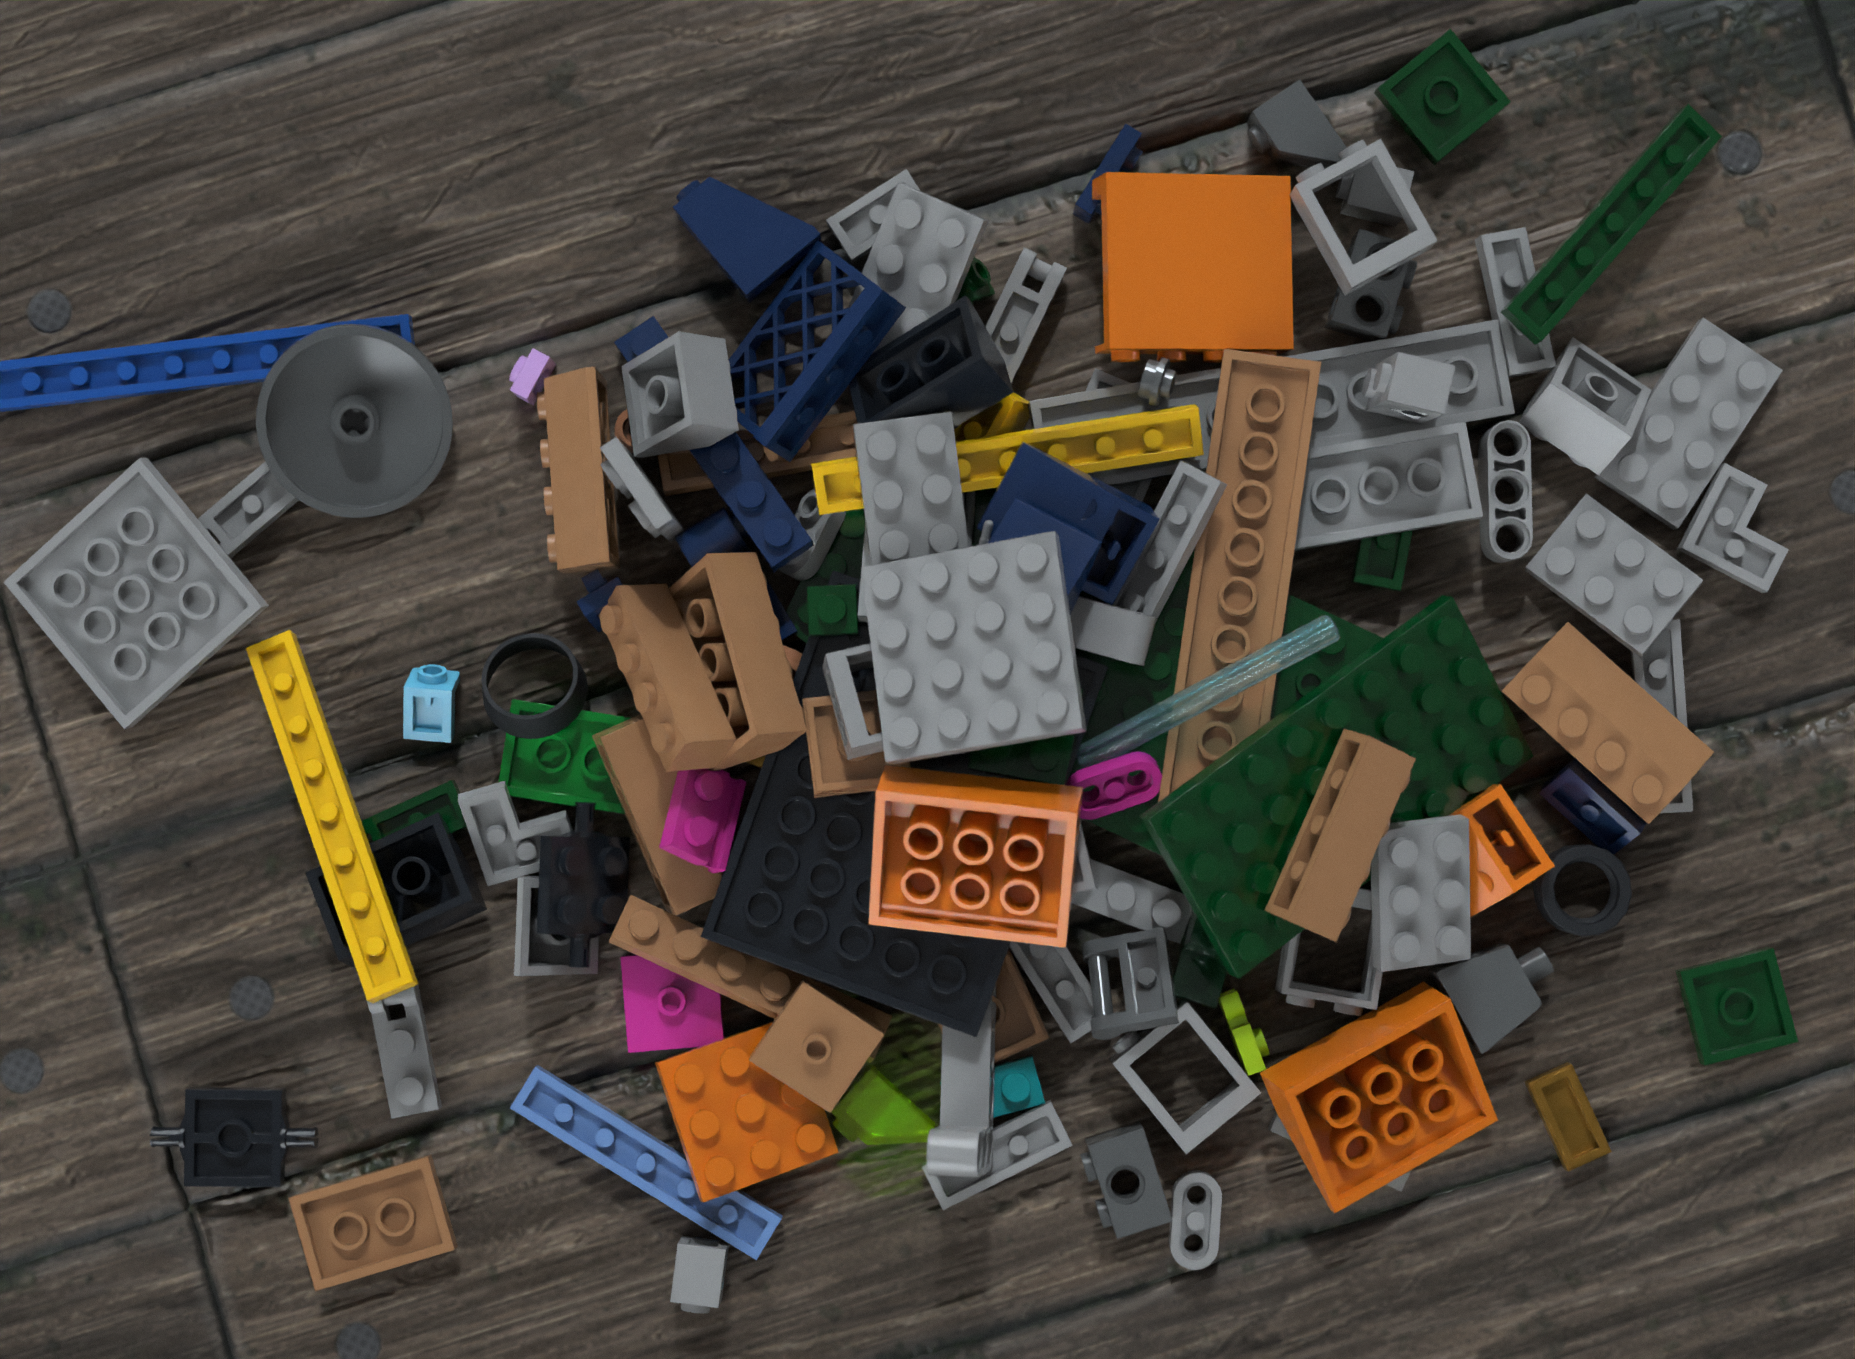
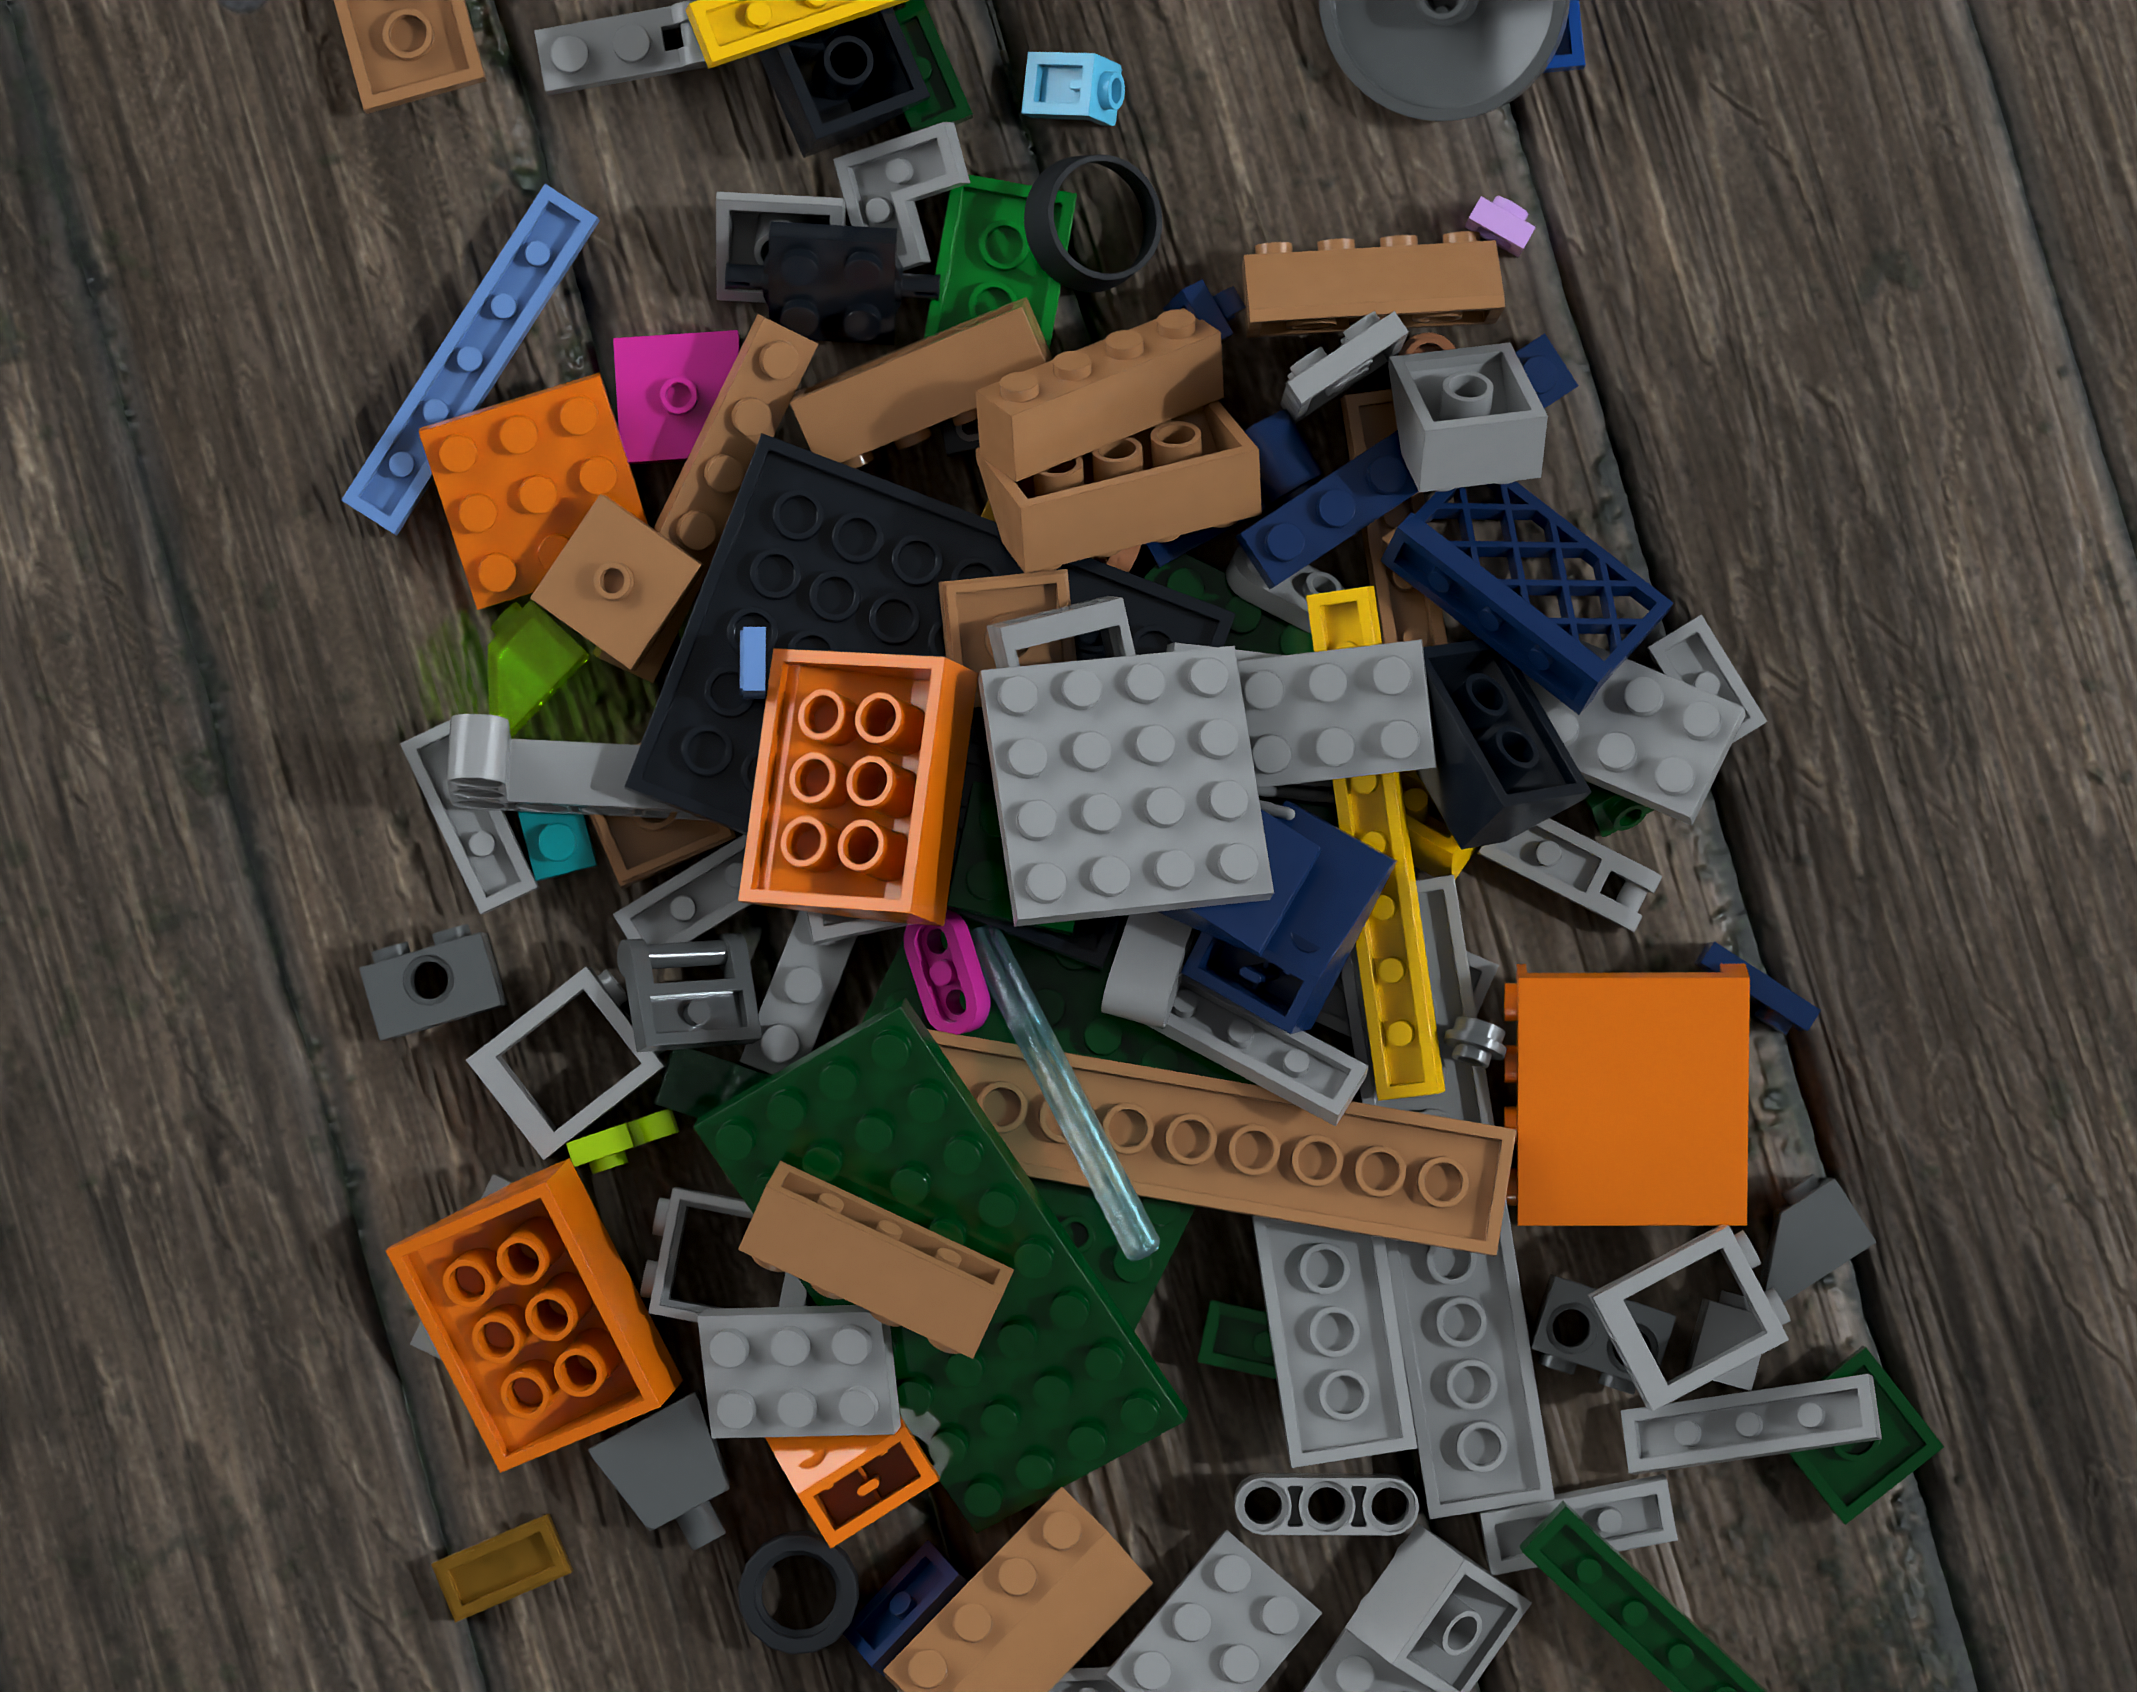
camera: 90 degrees right, 0 degrees up
(699, 1273) = (324, 426): light grey brick -> none
(703, 817) = (916, 439): dark pink plate -> none
(744, 235) = (1682, 506): dark blue slope -> none
(833, 610) = (1182, 611): dark green plate -> none
(879, 940) = (753, 662): none -> medium blue tile
(1195, 1218) = (380, 1073): light grey plate -> none
(1408, 387) = (1460, 1369): light grey brick -> none
(1439, 169) = (1751, 1424): none -> light grey plate

